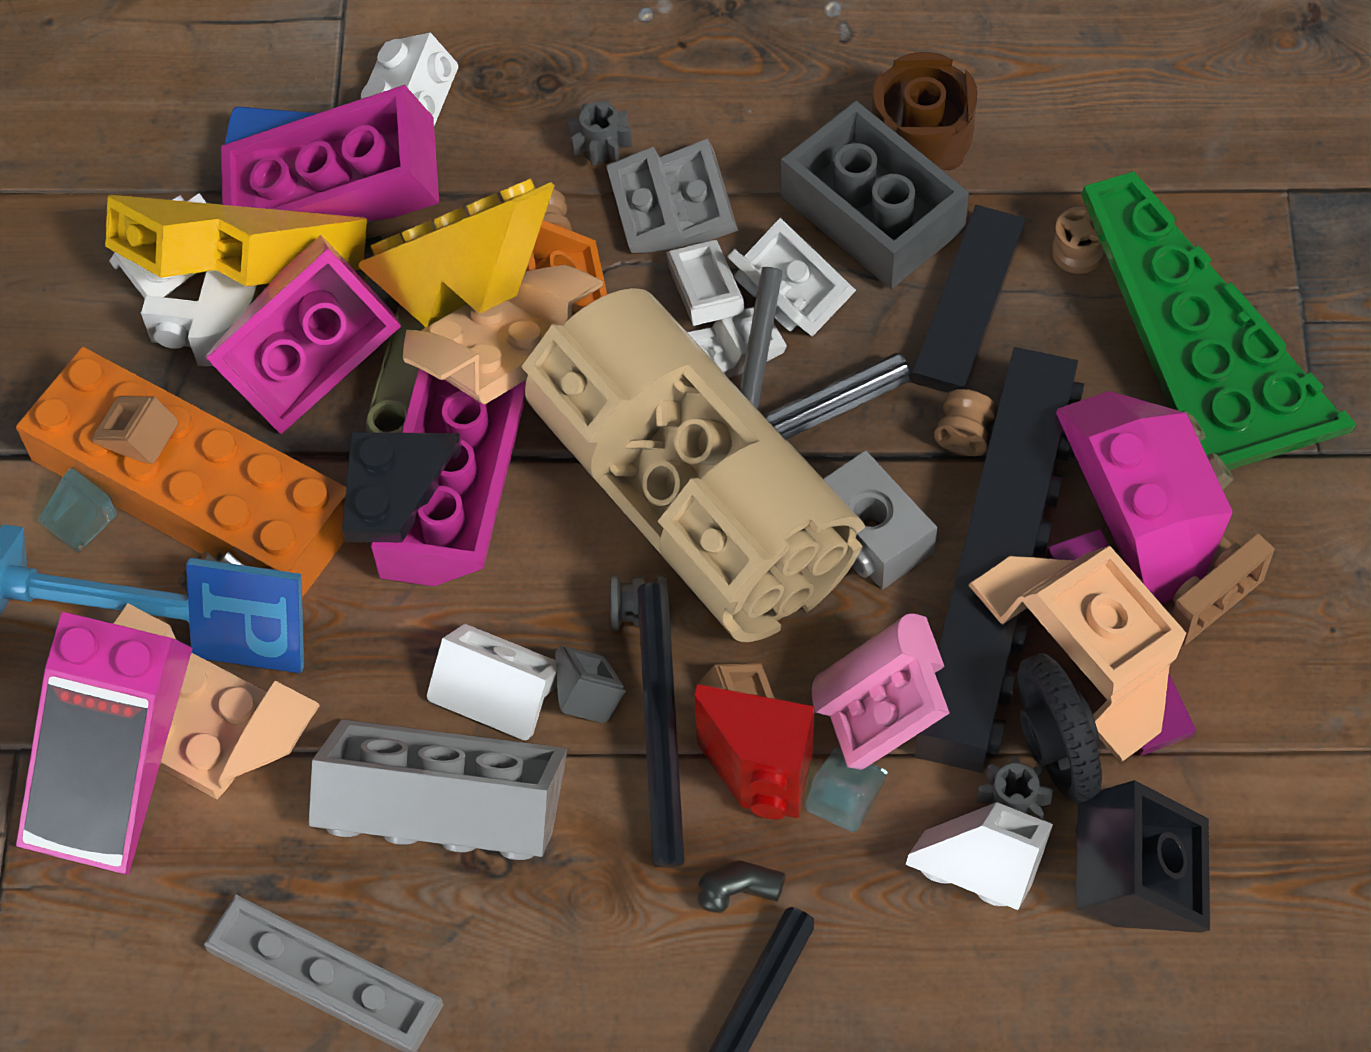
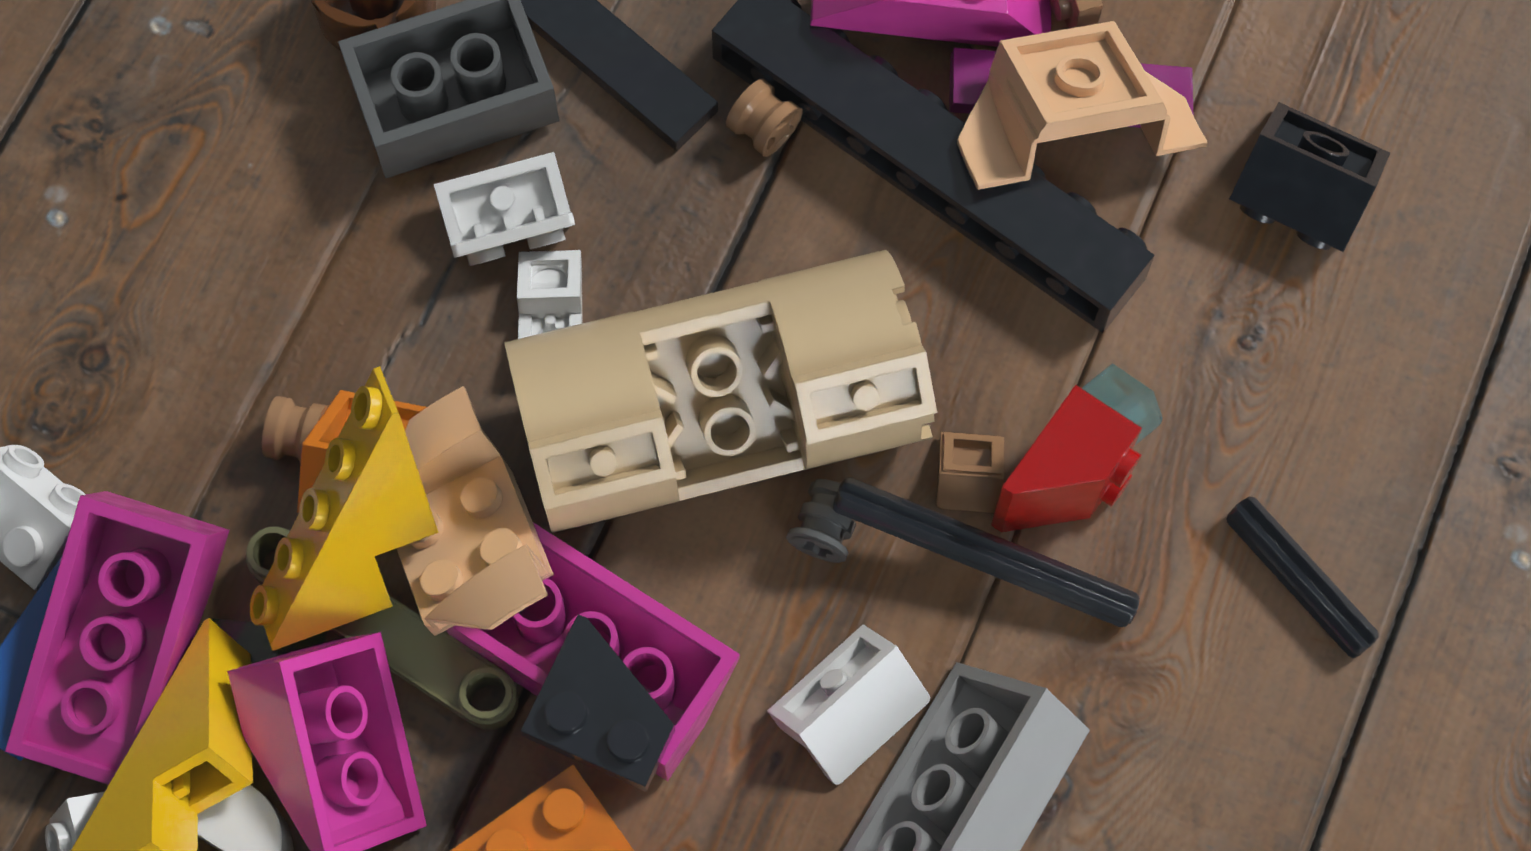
camera: 70 degrees left, 10 degrees up
(587, 684) = (900, 609): dark grey slope -> none
(600, 132) = (224, 325): dark grey gear -> none
(671, 198) = (329, 288): light grey slope -> none
(705, 282) = (466, 296): white tile -> none
(738, 877) = (1176, 555): pearl dark grey arm -> none
(760, 334) = (568, 263): dark grey bar -> none
(840, 396) = (666, 222): axle -> none
(883, 691) = (1051, 321): bright pink brick -> none
(904, 532) = (850, 227): light grey brick -> none
(985, 852) = (1252, 307): white slope -> none
(1012, 780) = (1205, 242): dark grey gear -> none
(1059, 728) = (1166, 177): black wheel -> none

